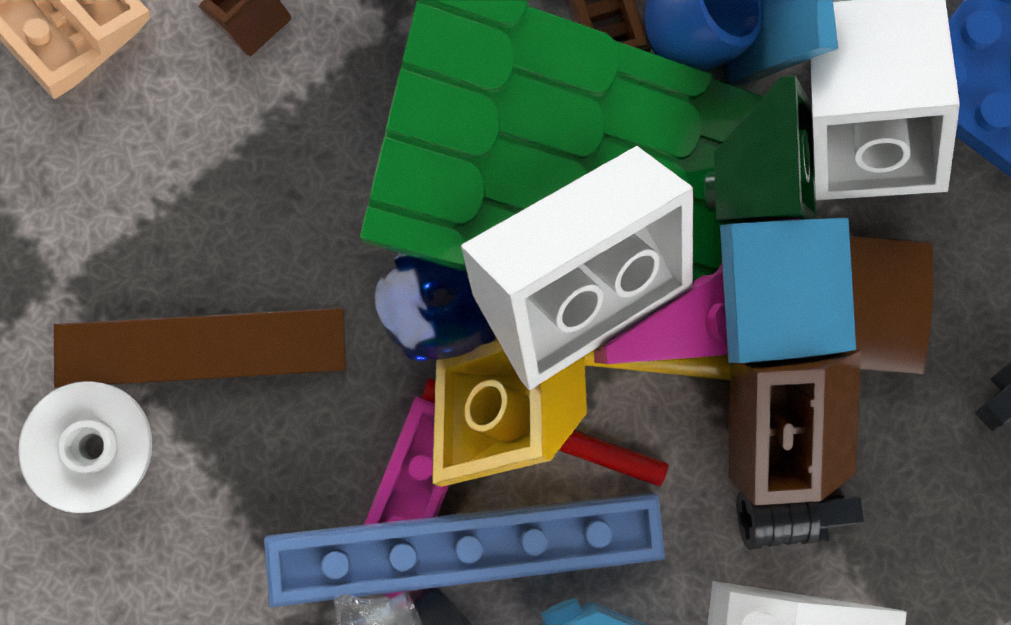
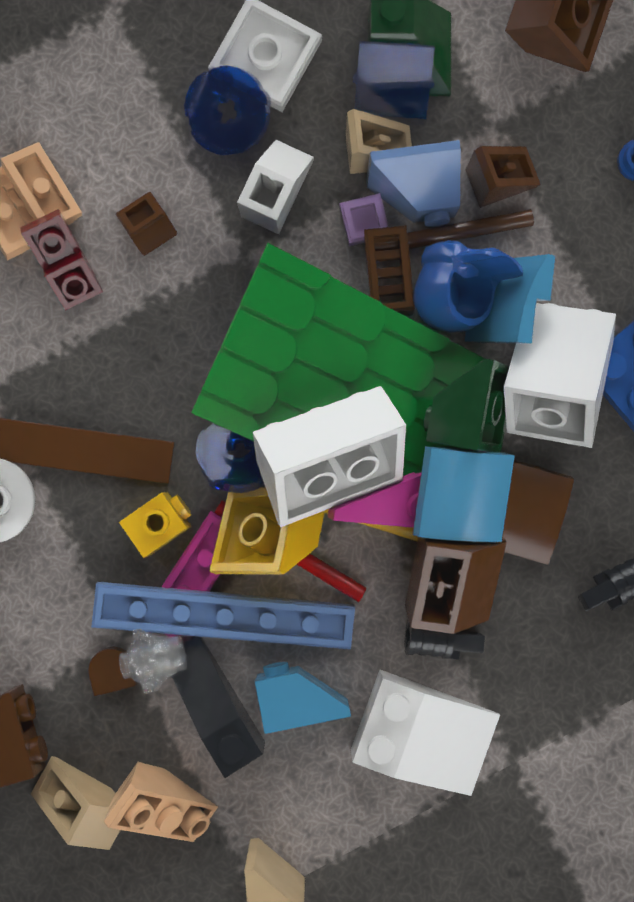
camera: 15 degrees right, 5 degrees up
(130, 79) = (61, 259): none -> slope
(339, 429) = (157, 523): none -> yellow brick

